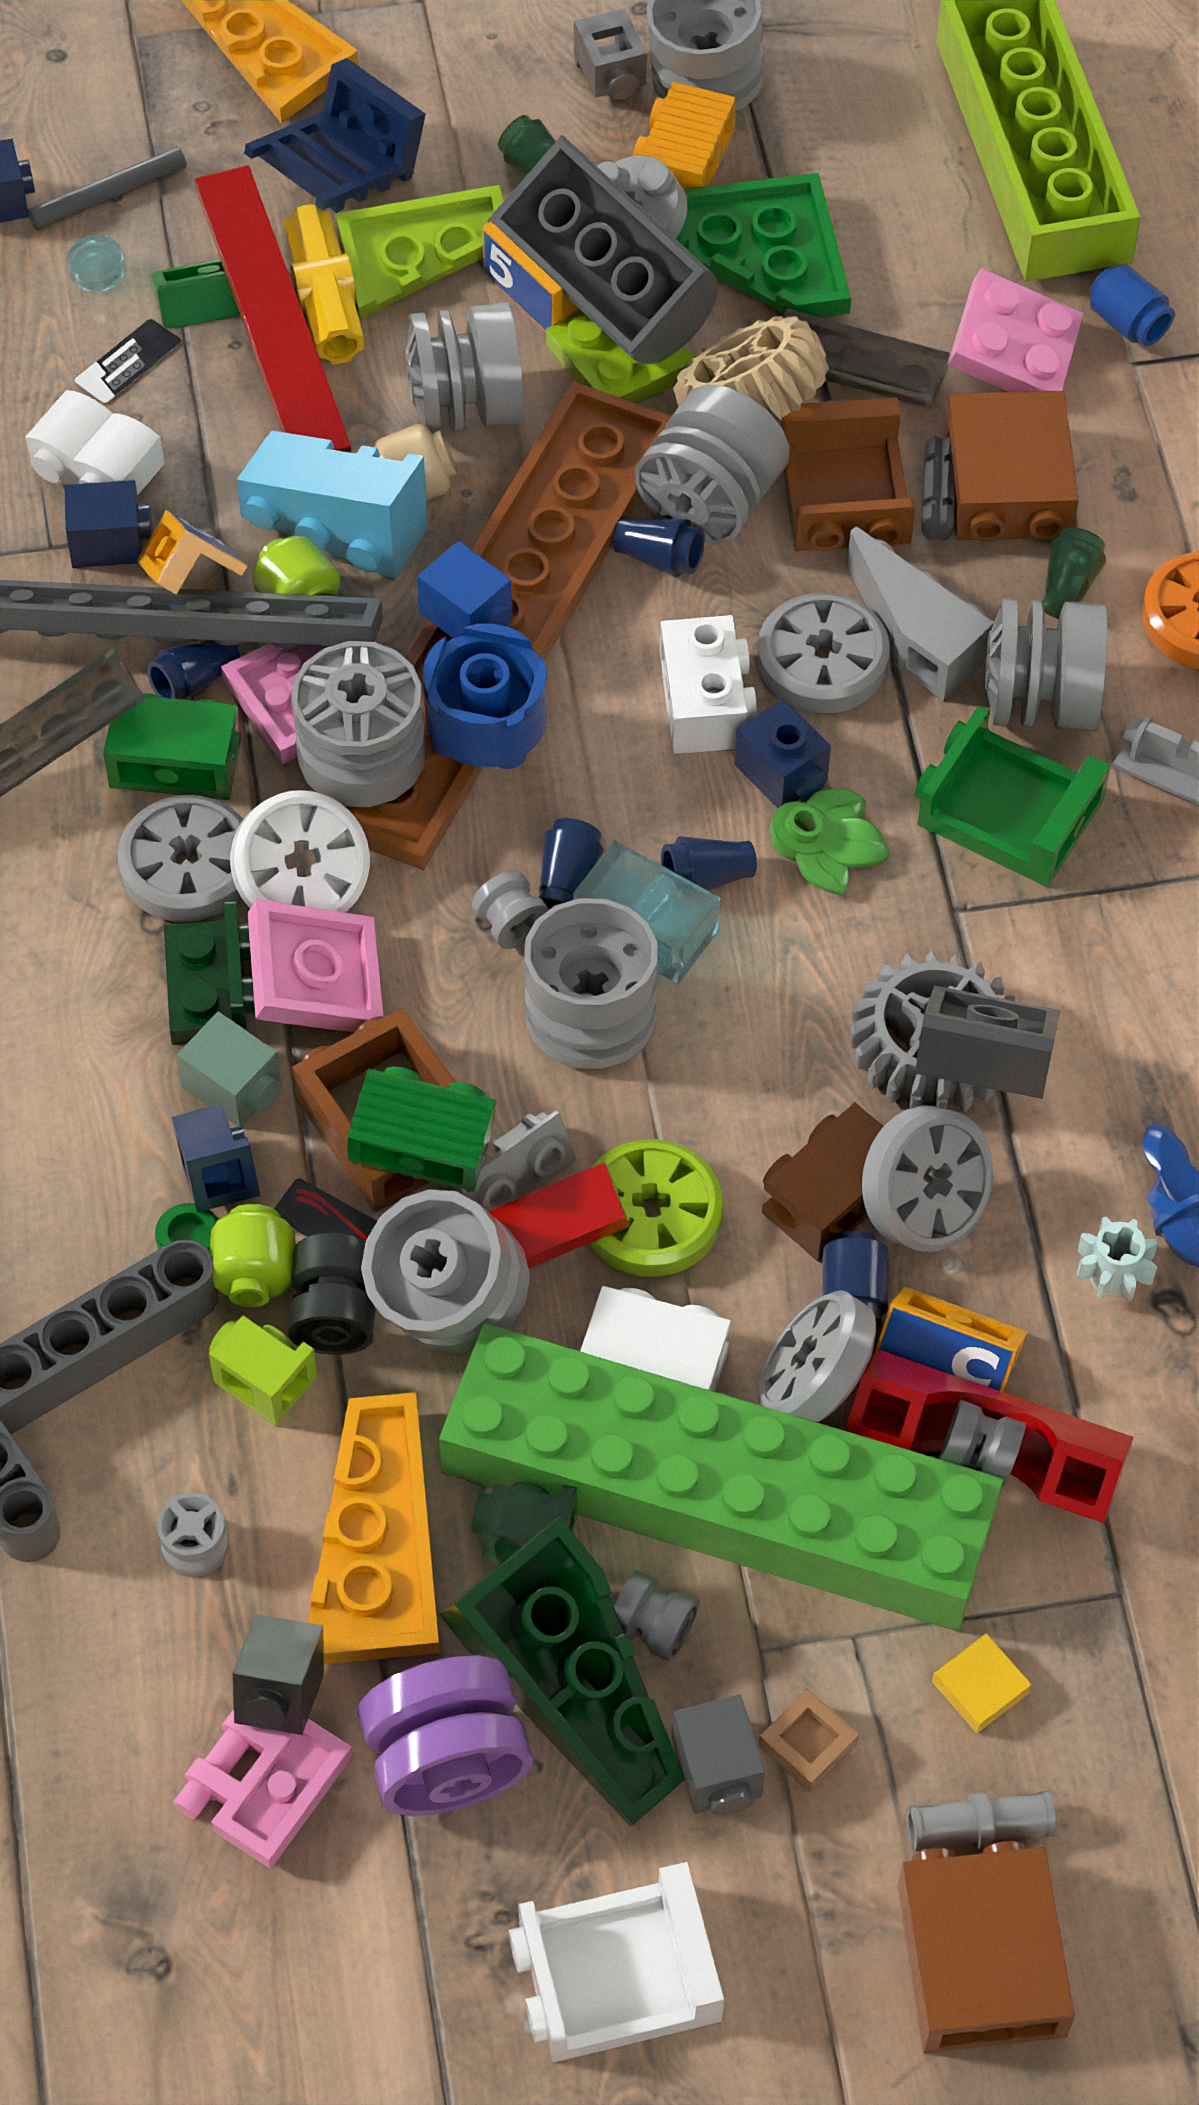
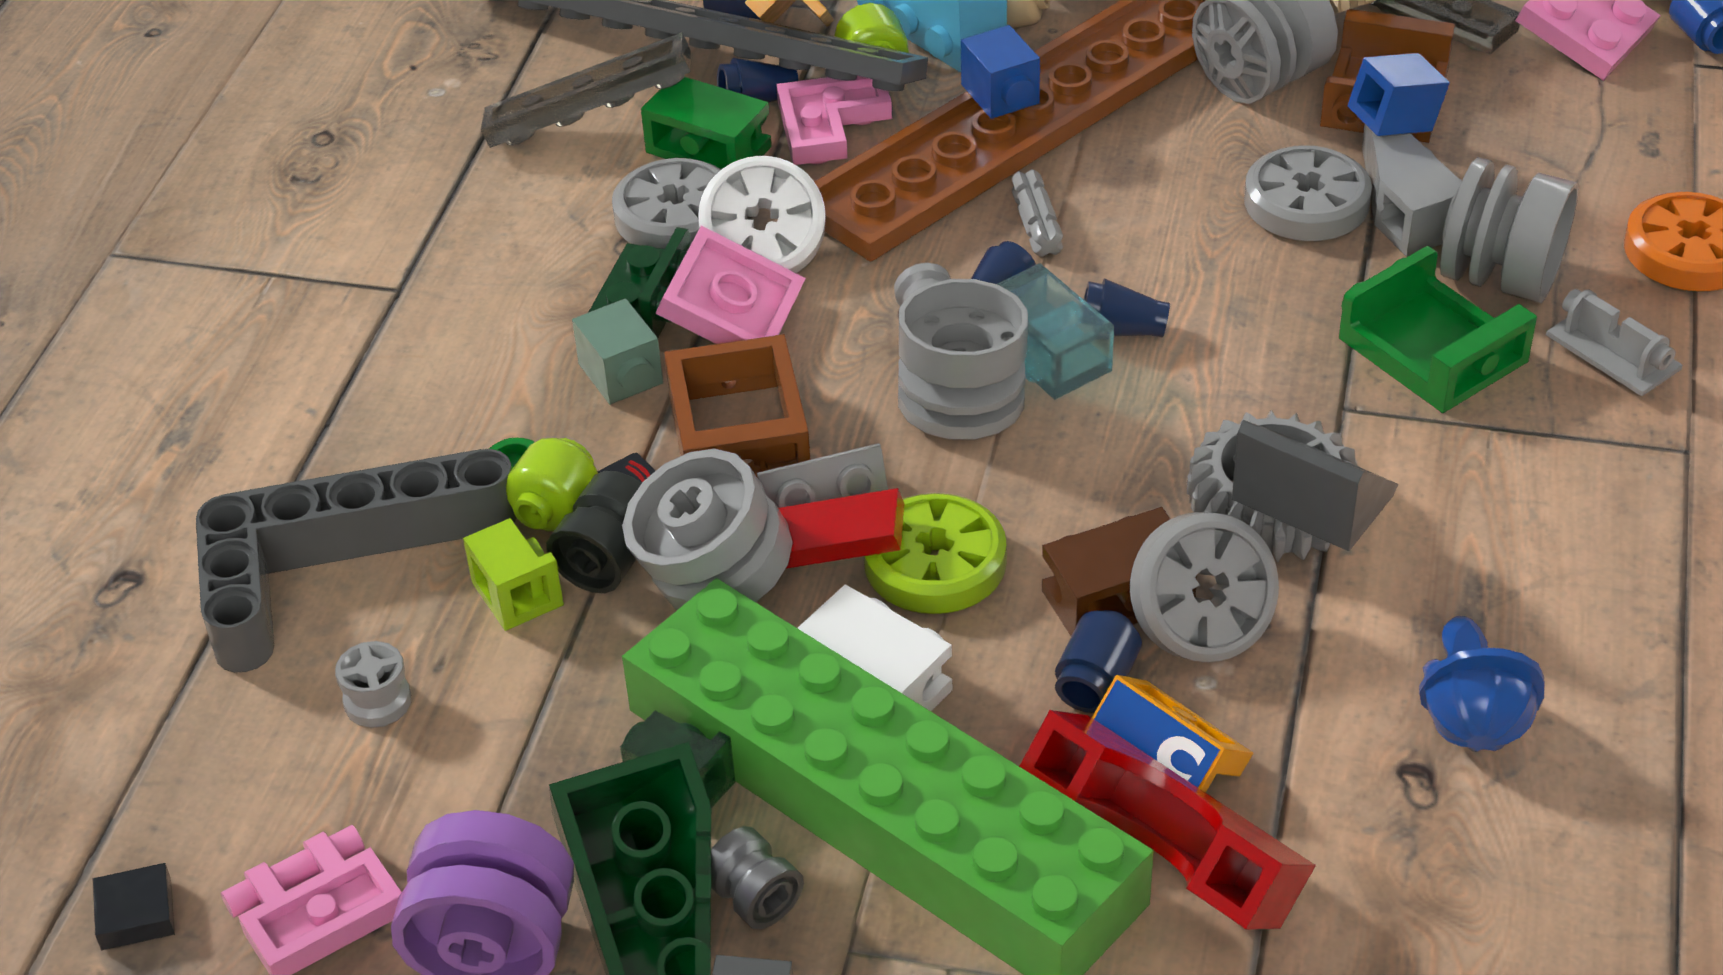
camera: 25 degrees right, 15 degrees down
(93, 1842) = (133, 906): none -> black tile
(215, 1158) = (561, 403): dark blue brick -> none
(278, 1674) = (365, 805): pearl dark grey brick -> none
(359, 723) = (857, 125): light grey wheel -> none
(376, 1550) = (535, 732): light orange wing -> none
(421, 1128) = (741, 411): green brick -> none
(485, 696) = (976, 134): blue brick -> none
(571, 764) = (1037, 213): none -> light grey axle
(661, 543) = (1202, 89): dark blue cone -> none
(704, 683) = (1186, 186): white brick -> none
(782, 755) = (1231, 250): dark blue brick -> none
(819, 1357) = (1025, 696): light grey wheel -> none
(832, 837) = (1245, 321): bright green plate -> none
(888, 526) = (1398, 94): none -> blue brick
(938, 490) = (1471, 106): dark grey axle -> none
(982, 1441) = (1149, 813): flat silver wheel -> none
(1011, 465) = (1542, 99): dark orange panel -> none
(1072, 568) = (1582, 166): clear green cone -> none
(1119, 1241) = (1371, 712): light aqua gear -> none

